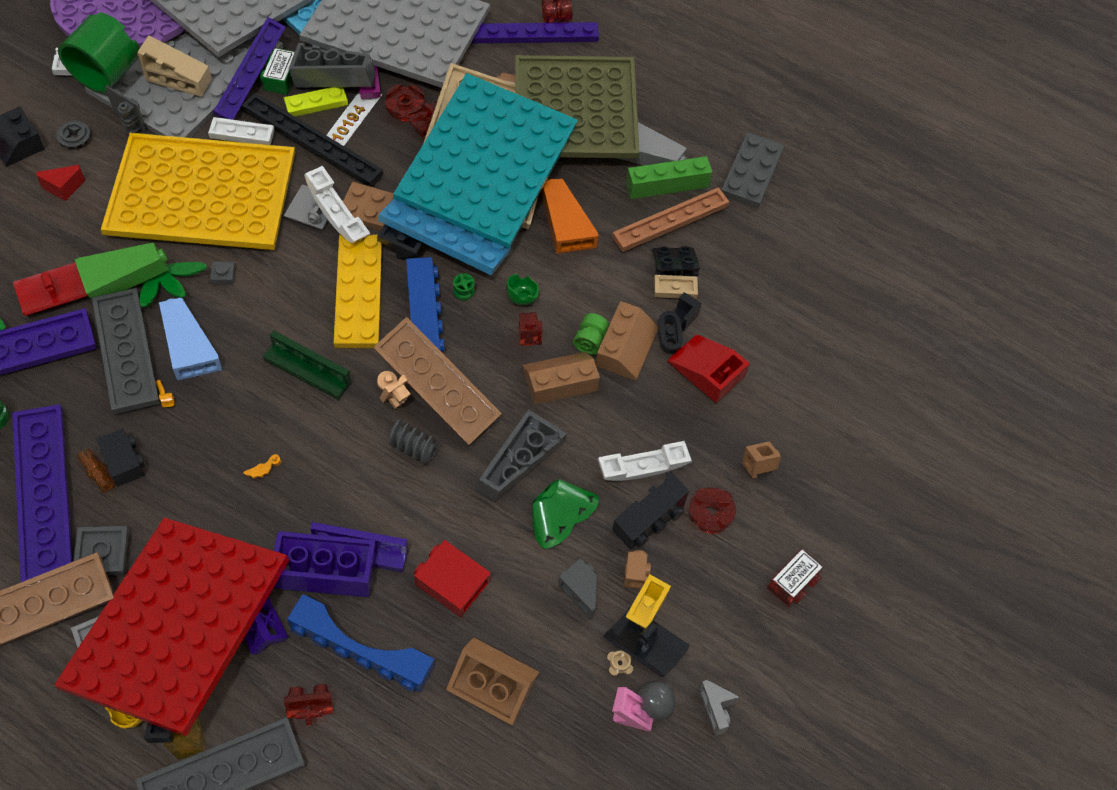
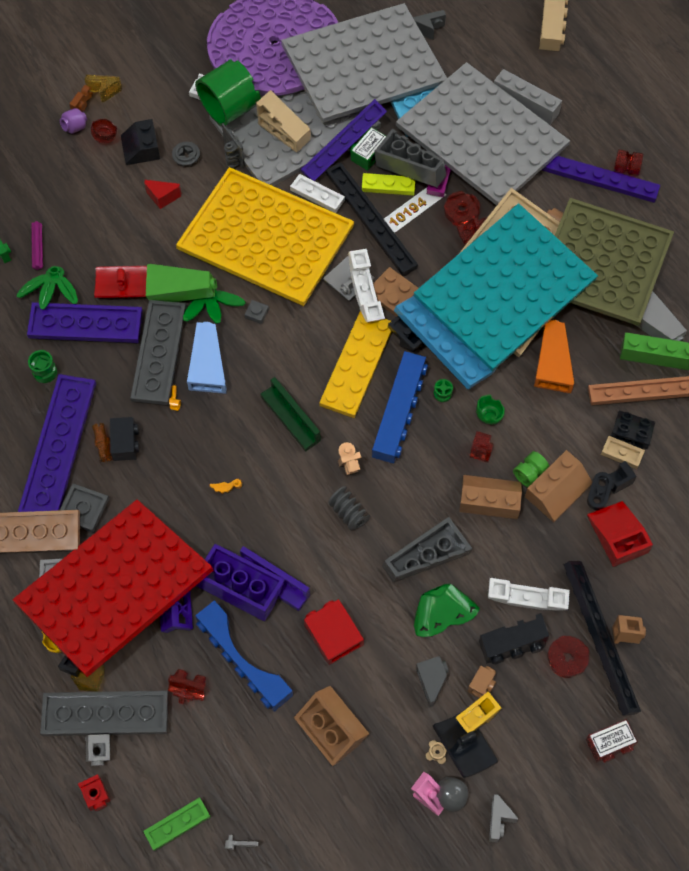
camera: 30 degrees right, 5 degrees up
(437, 381) = (386, 466): medium nougat plate -> none
(738, 477) = (602, 638): none -> black plate

